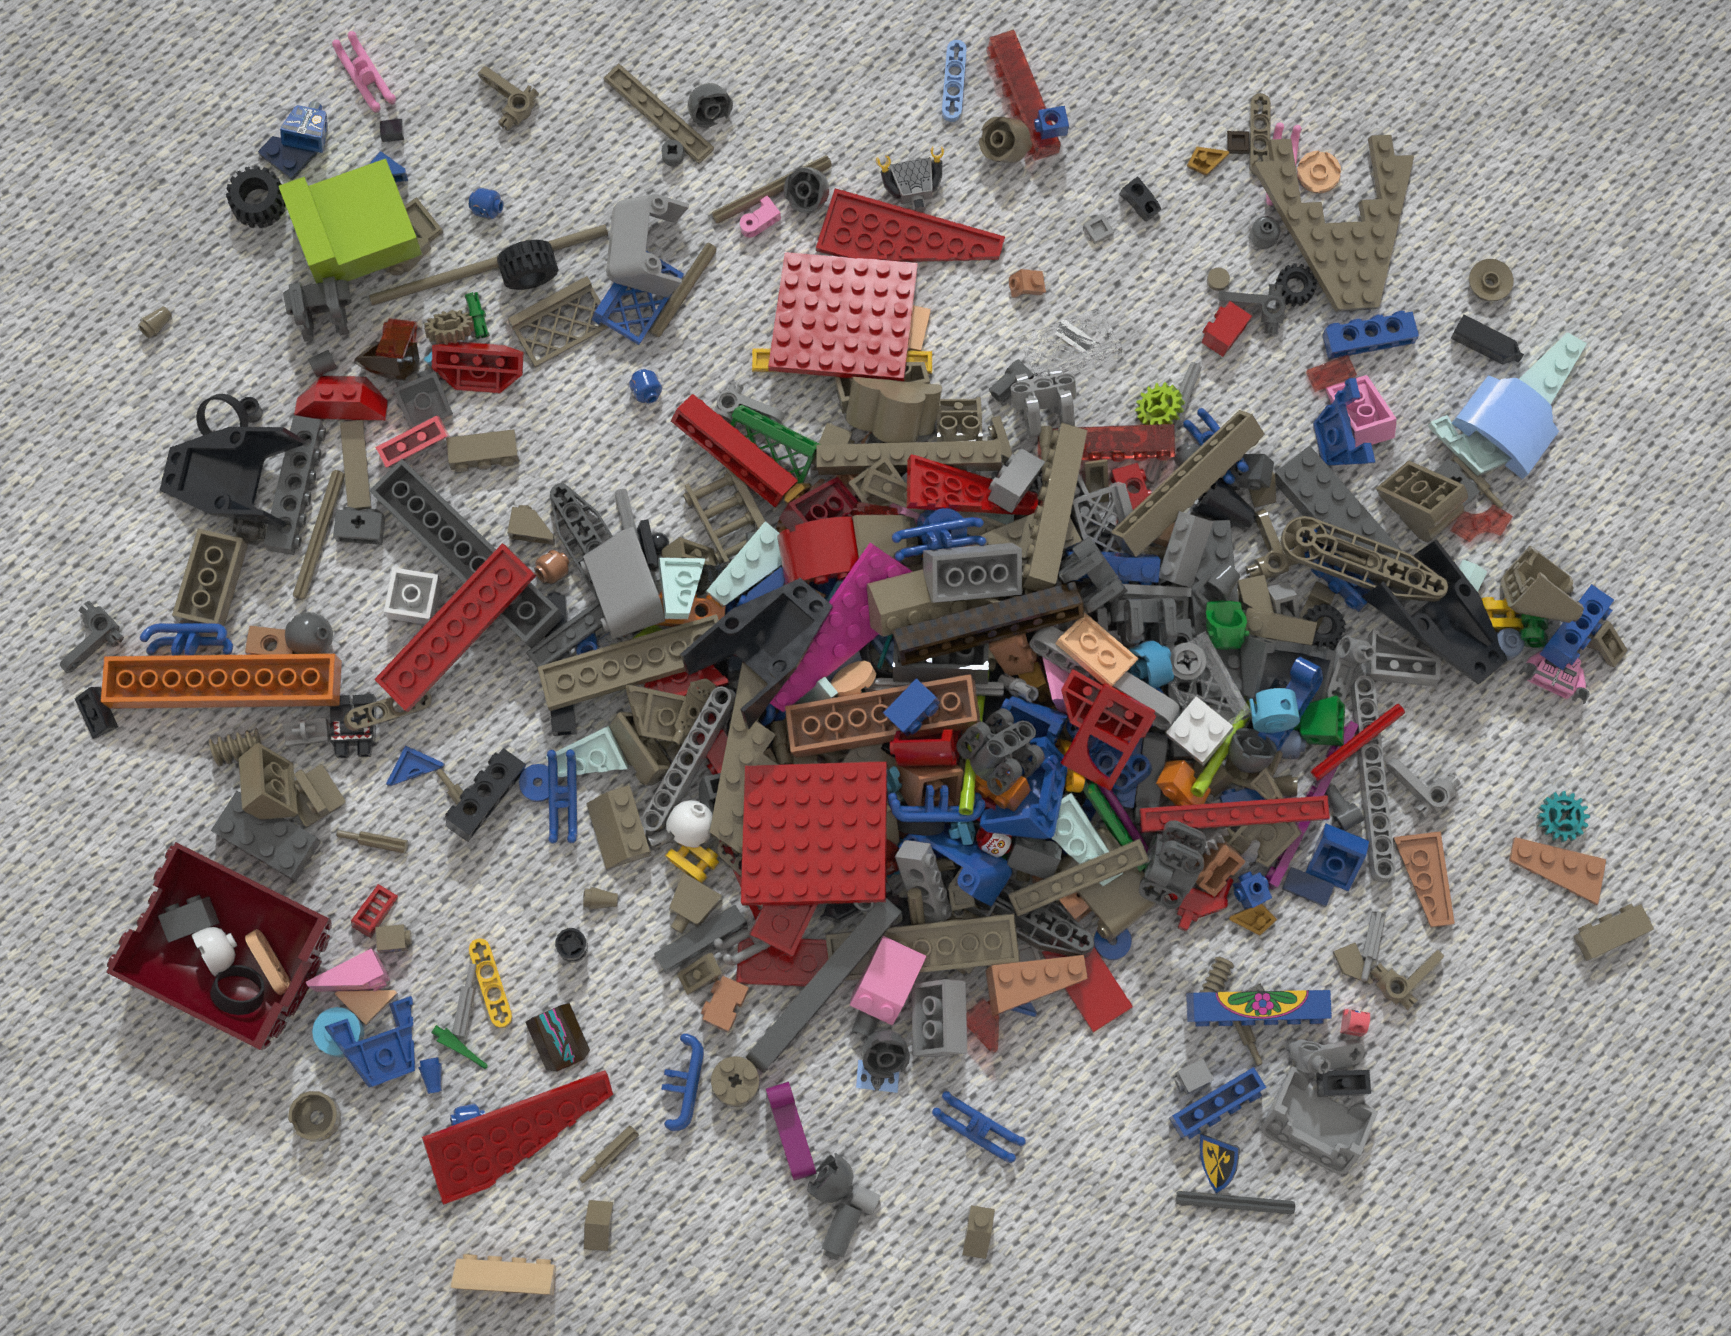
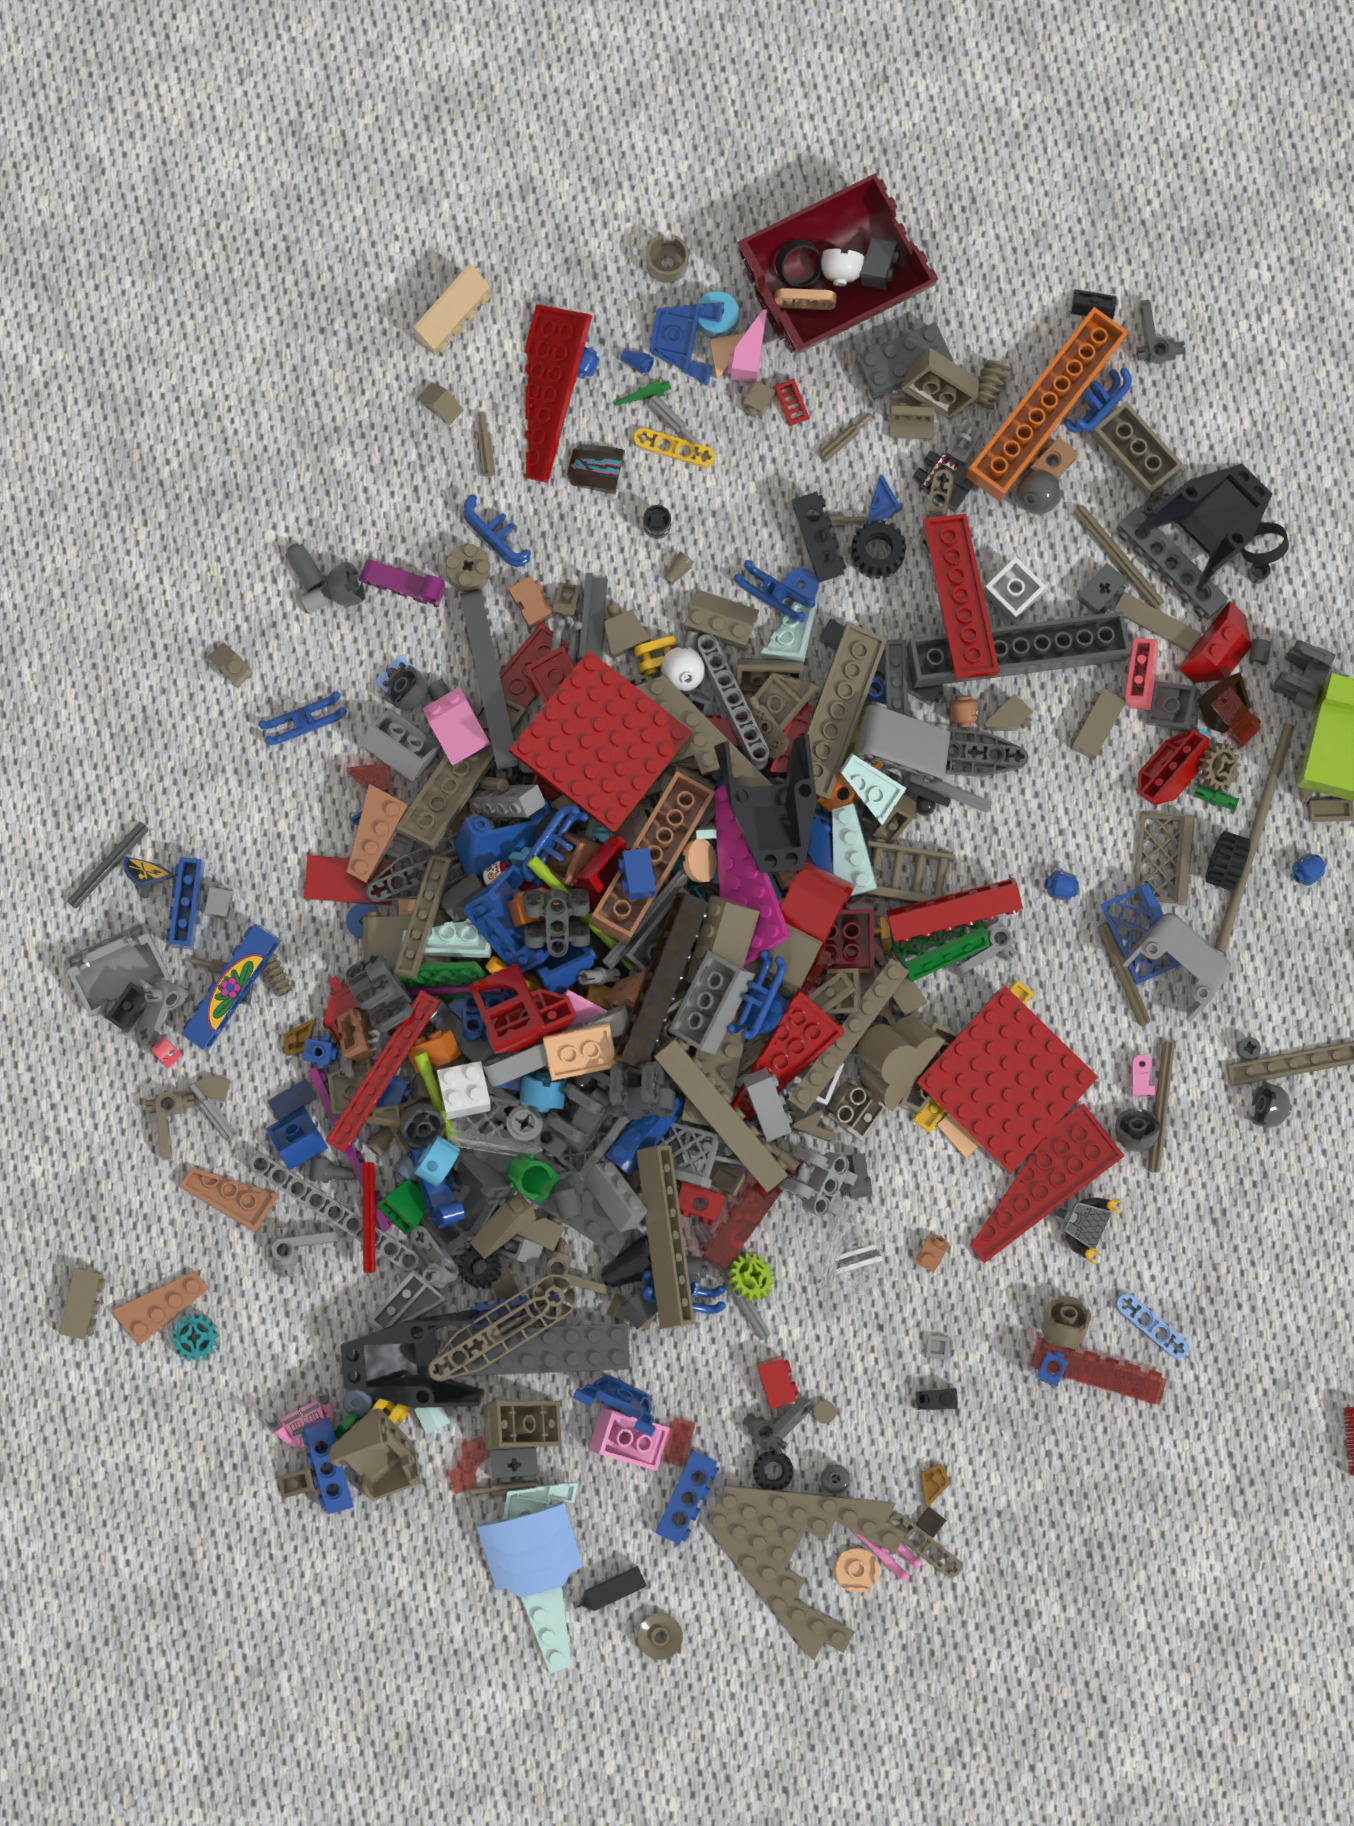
camera: 130 degrees right, 5 degrees up
(450, 719) = (875, 566): none -> black tyre

